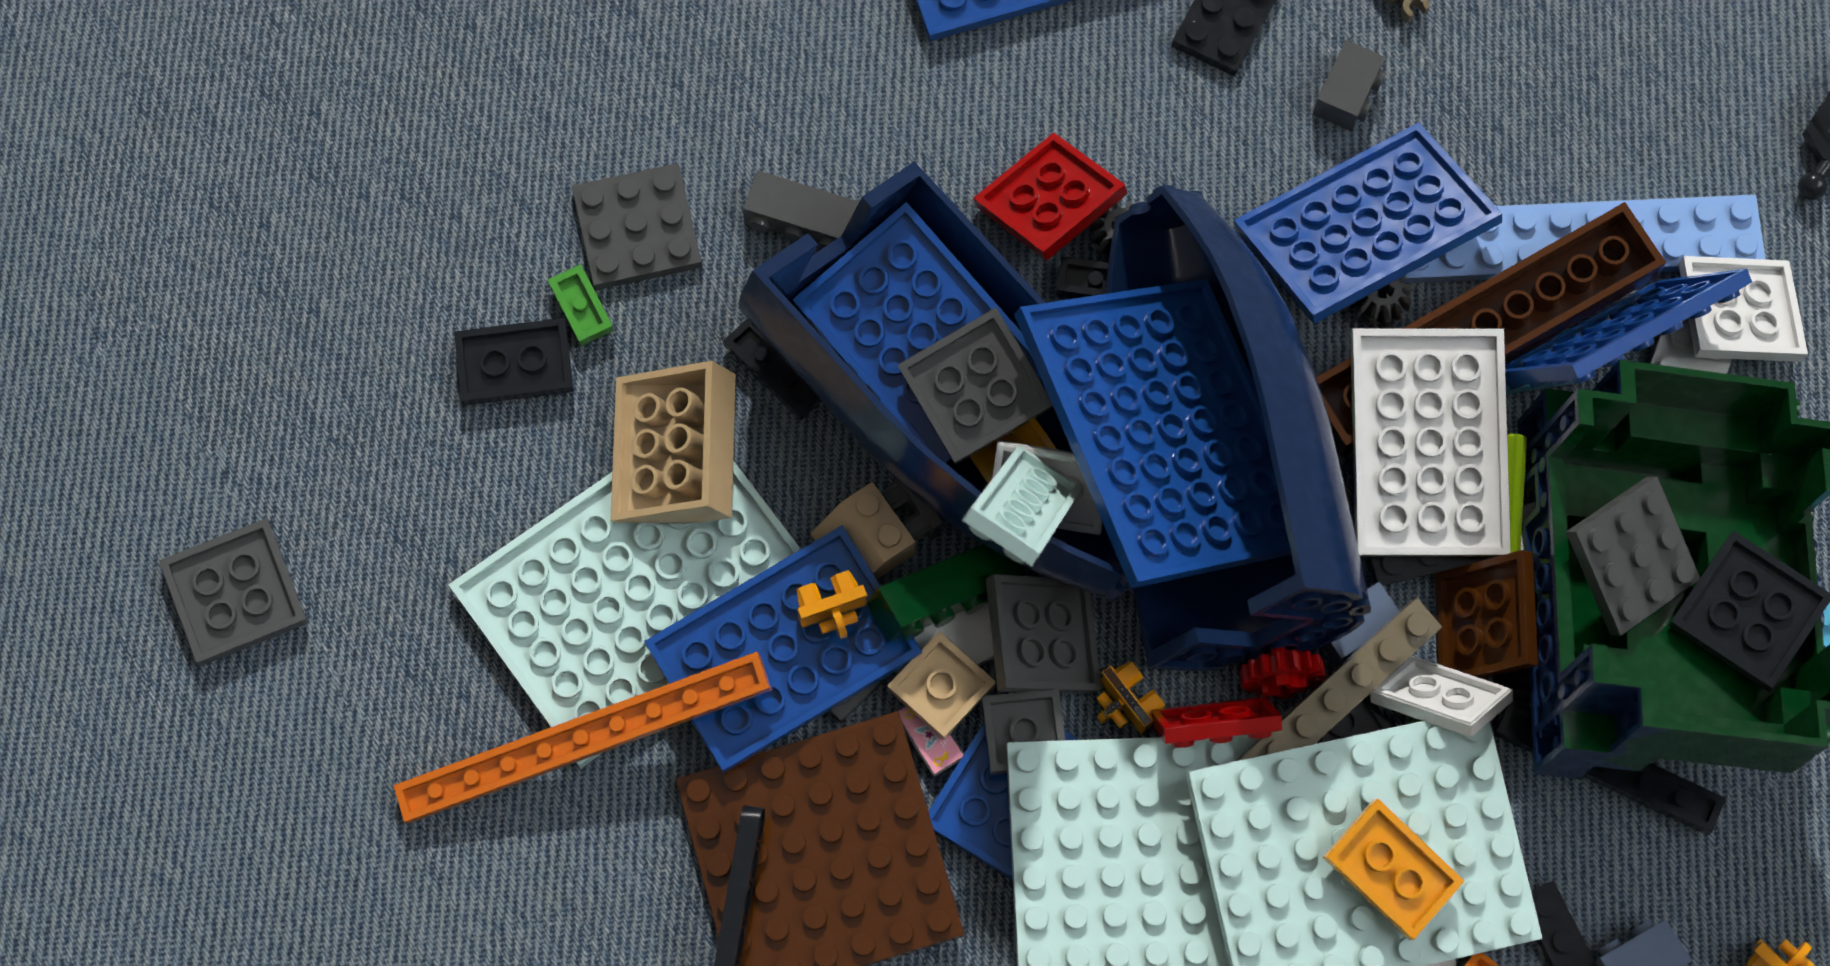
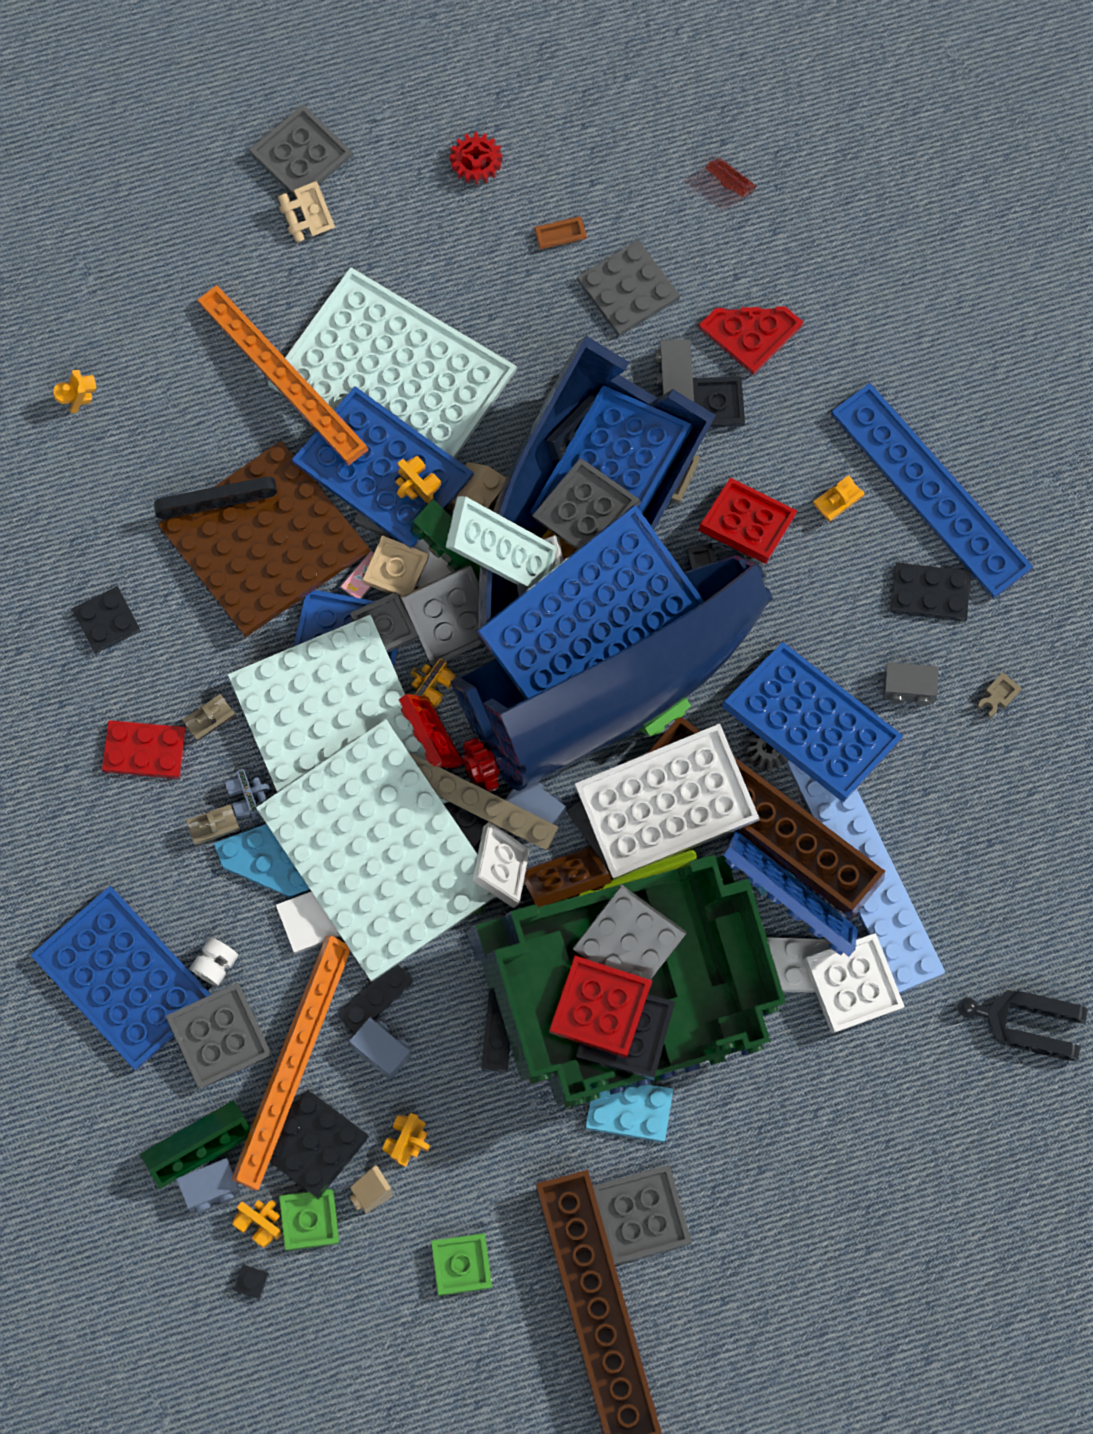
camera: 70 degrees right, 0 degrees up
(335, 604) = (313, 209): none -> tan plate
(359, 367) = (481, 168): none -> red gear
(513, 361) = (508, 250): black plate -> none
(515, 283) = (560, 232): none -> dark orange tile
(533, 33) = (730, 177): none -> clear red plate
(580, 305) = (561, 274): bright green plate -> none
(674, 445) = (486, 358): tan slope -> none
(772, 94) = (751, 333): none -> red plate
(855, 165) = (721, 397): none -> black plate
(1060, 74) = (838, 498): none -> light orange hips
(1393, 869) = (372, 864): light orange plate -> none
(1718, 628) = (600, 1006): none -> red plate

